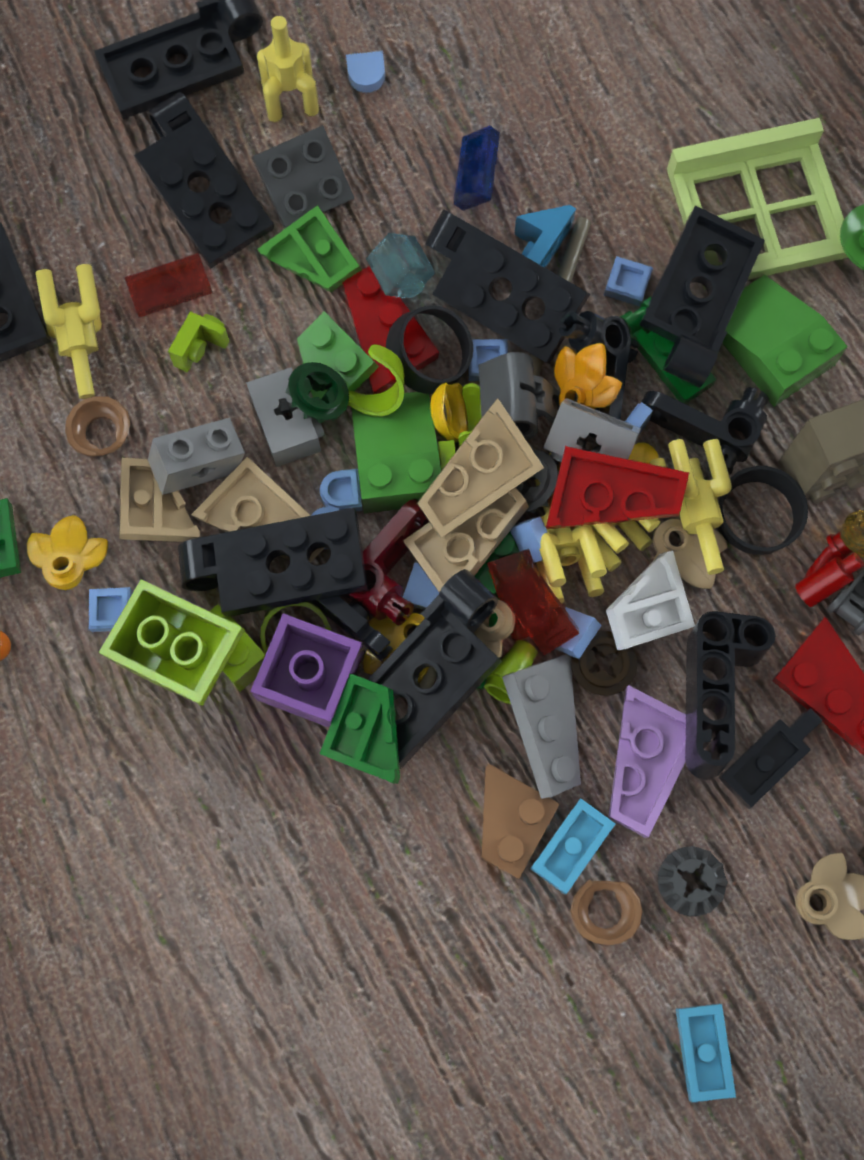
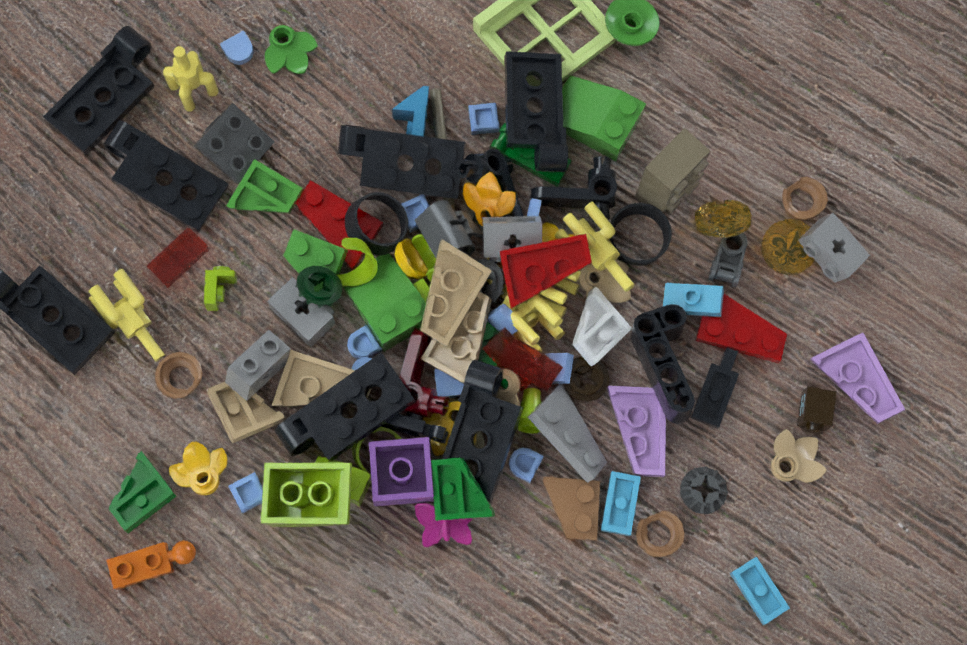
camera: 30 degrees left, 0 degrees up
(319, 767) = (436, 530): none -> dark pink piece
(400, 265) = (330, 176): clear light blue brick -> none
(429, 101) = (291, 53): none -> bright green plate
(473, 735) = (524, 463): none -> light blue tile
(476, 168) = (347, 85): clear blue plate -> none
(797, 625) = (695, 298): none -> medium azure plate
(829, 571) = (699, 255): red plant -> none

